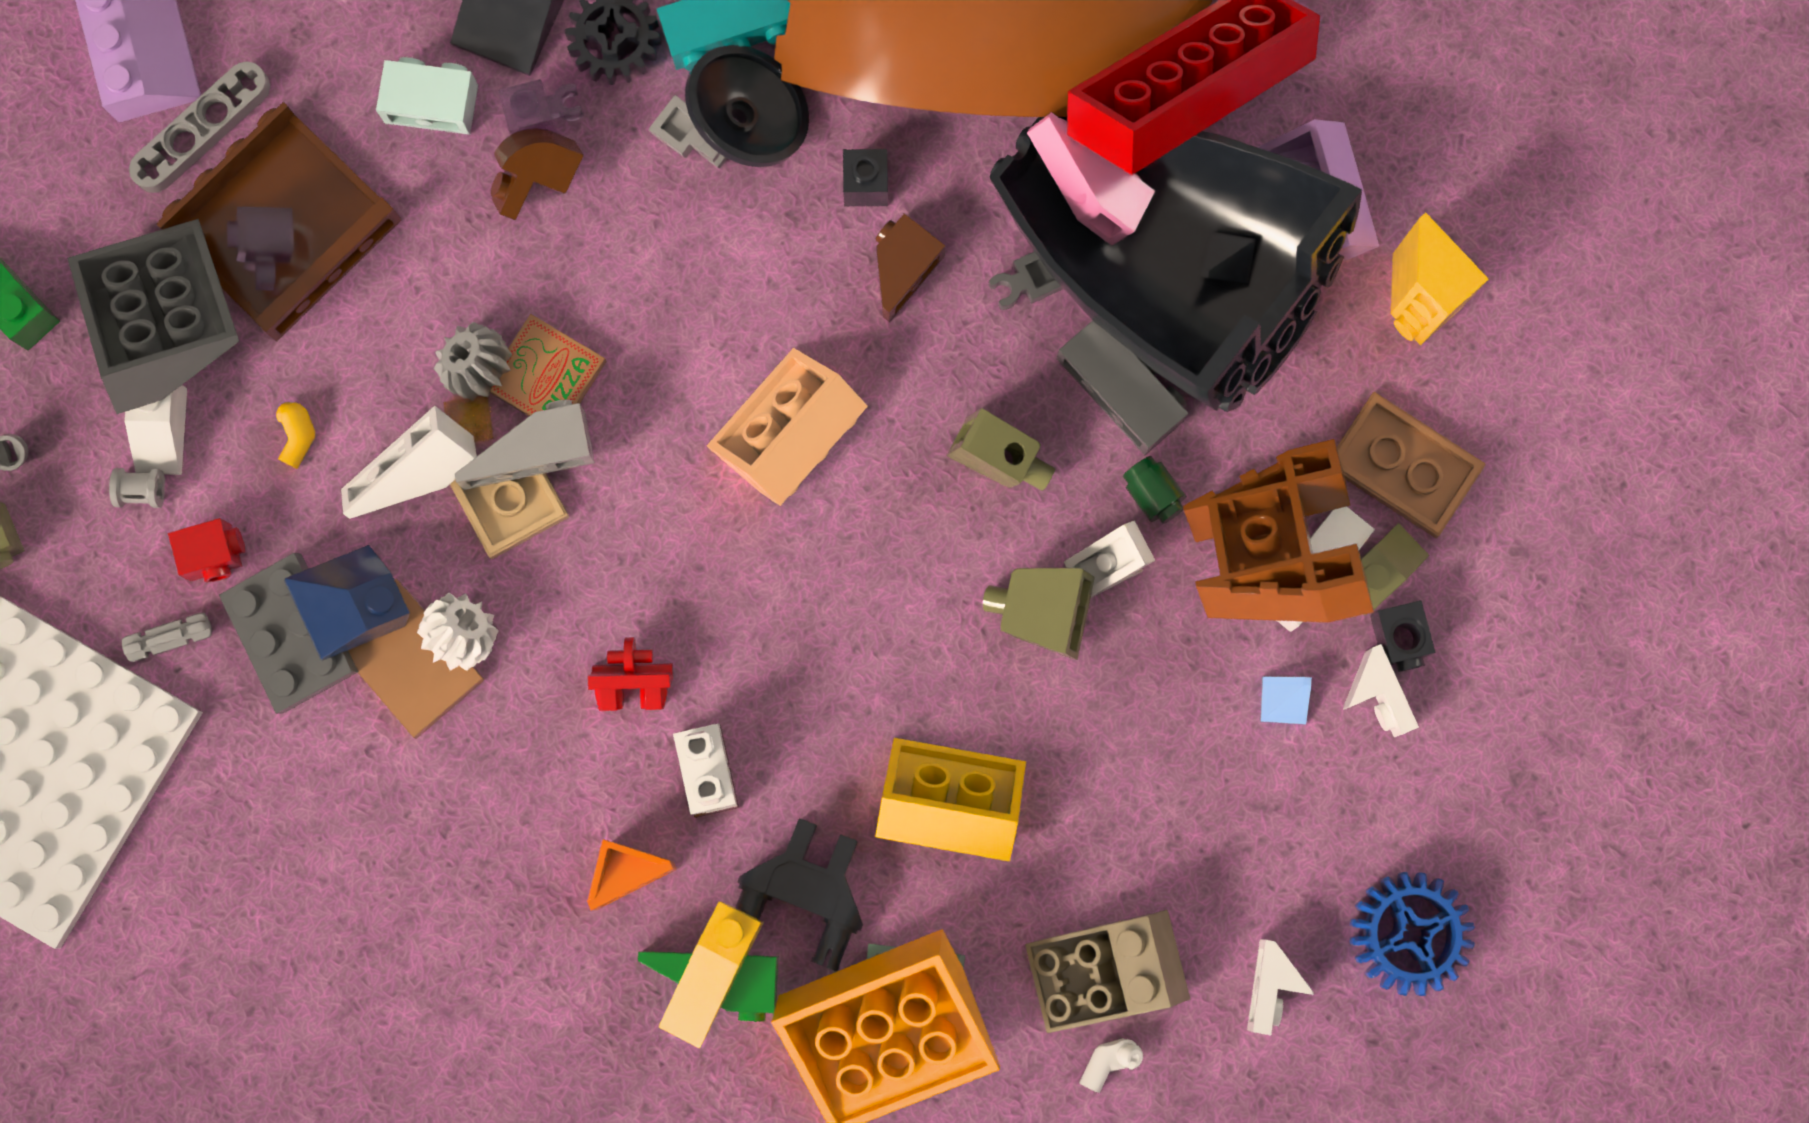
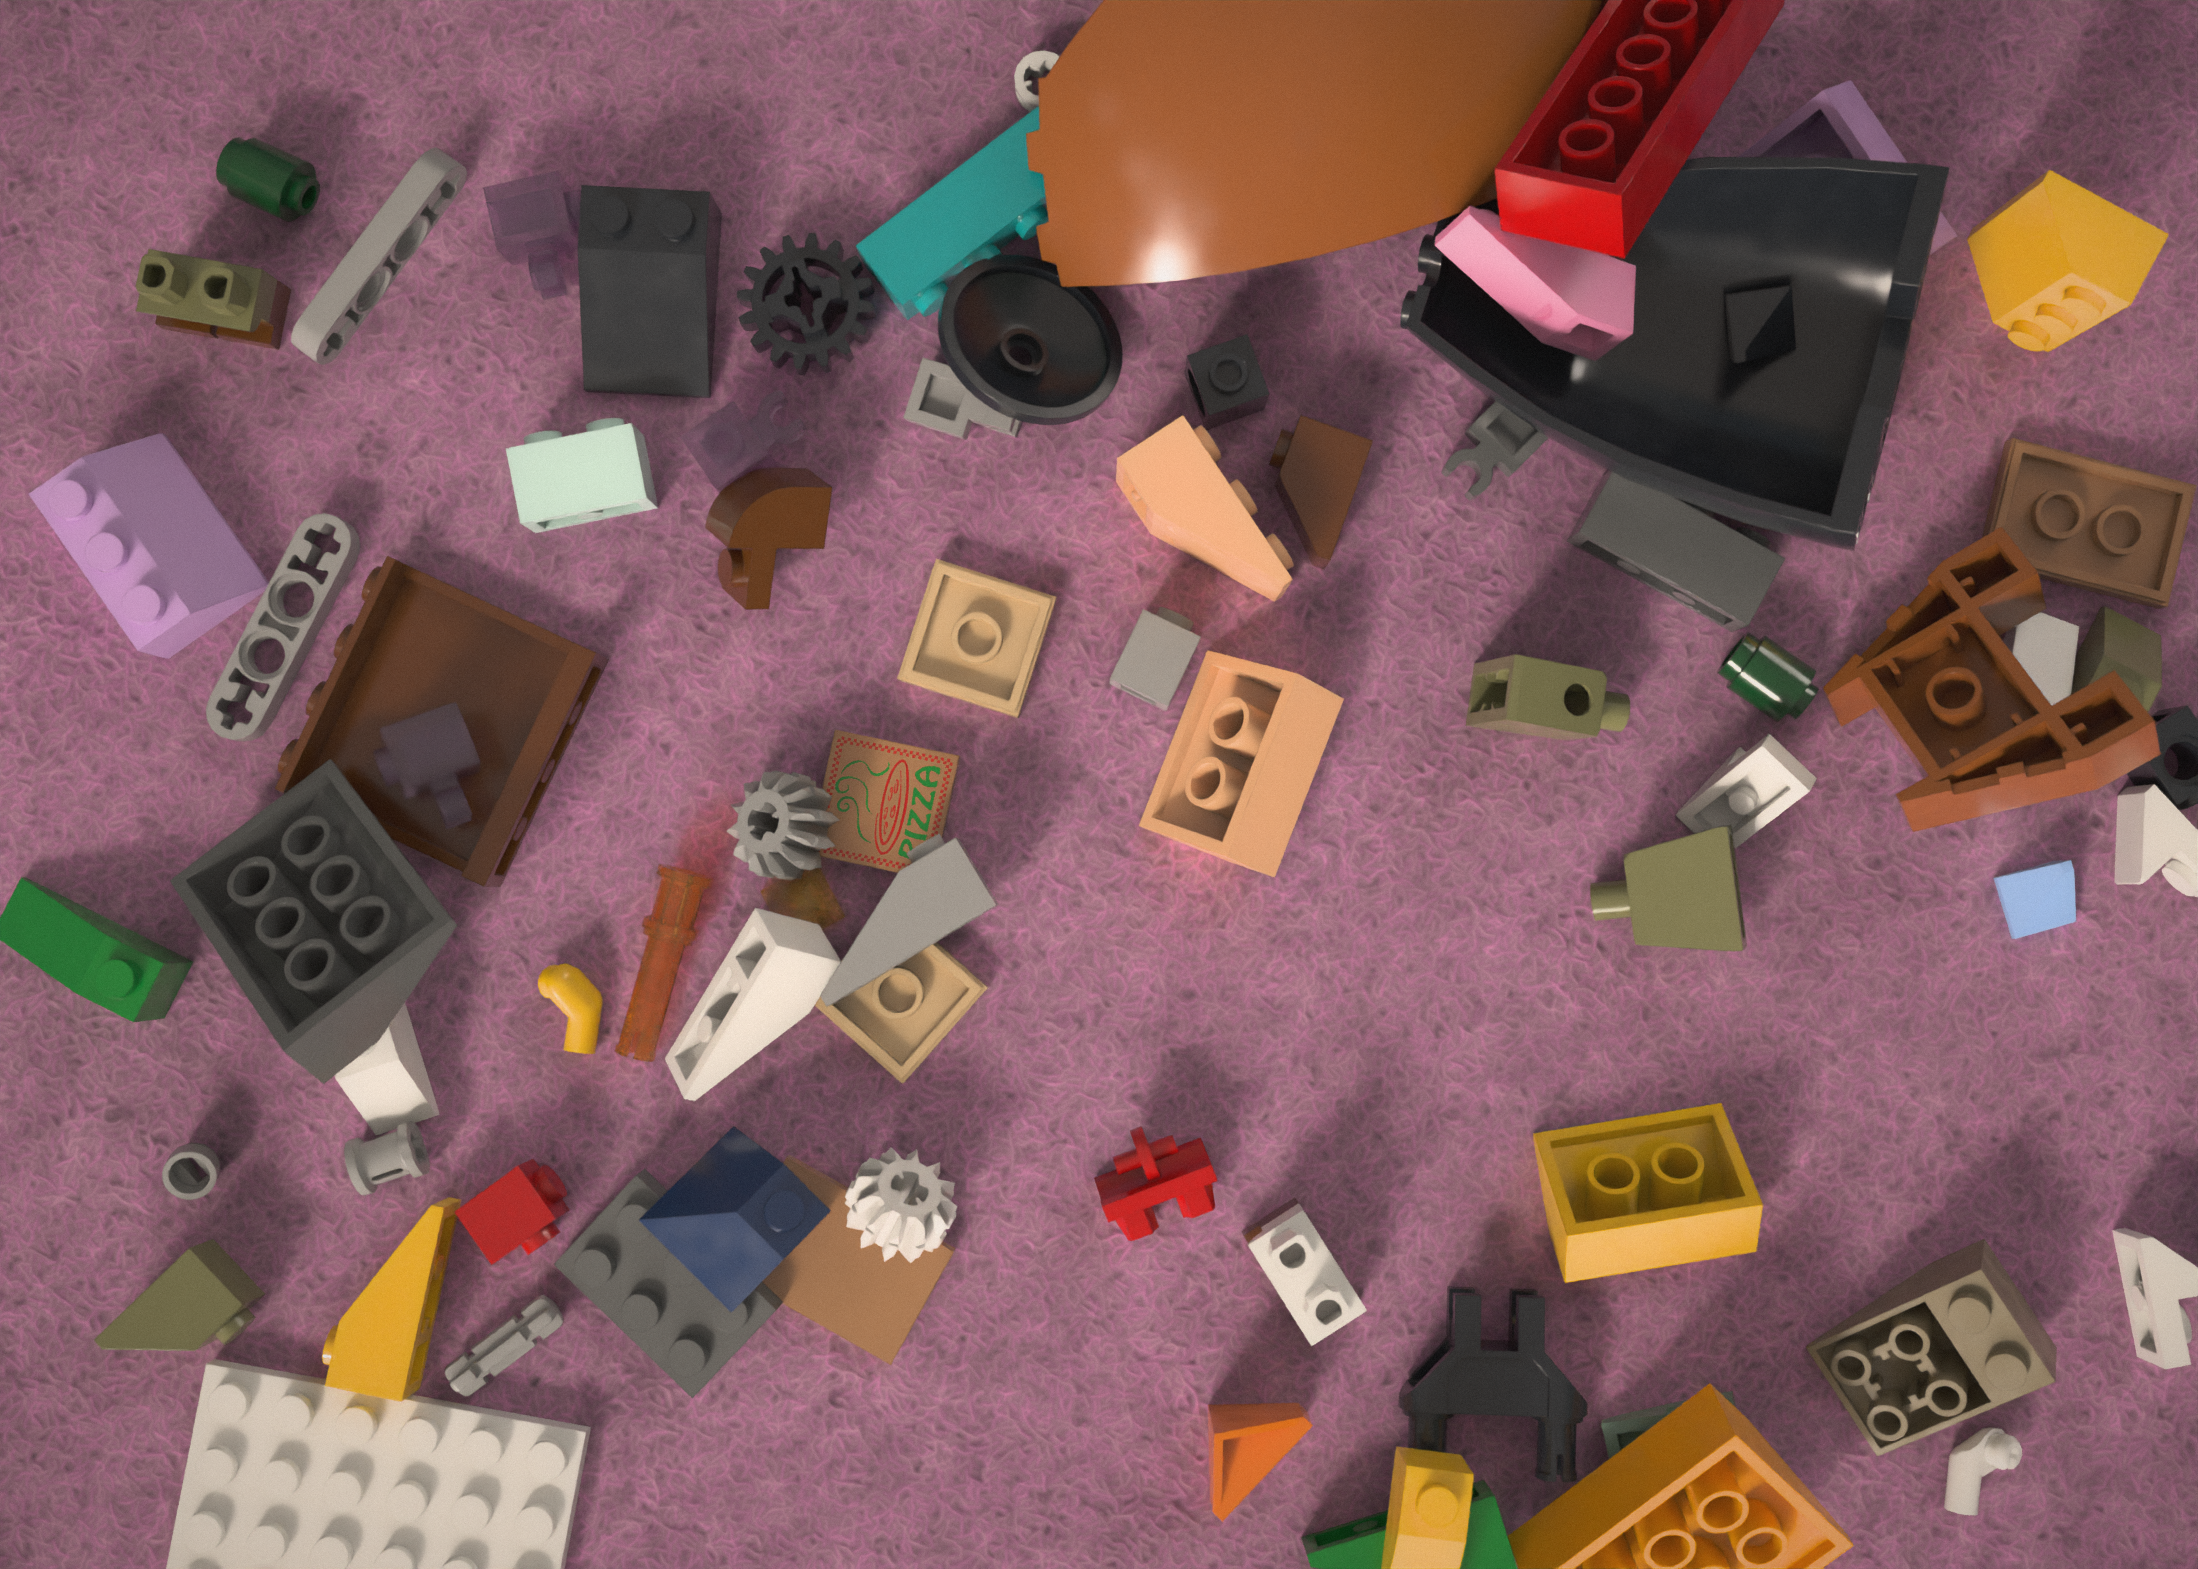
camera: 20 degrees left, 5 degrees up
(100, 593) = (389, 1327): none -> yellow slope
(373, 406) = (668, 932): none -> clear orange pin
(645, 288) = (977, 638): none -> tan tile
(755, 338) = (1156, 657): none -> light grey brick
(807, 238) = (1193, 507): none -> light nougat slope

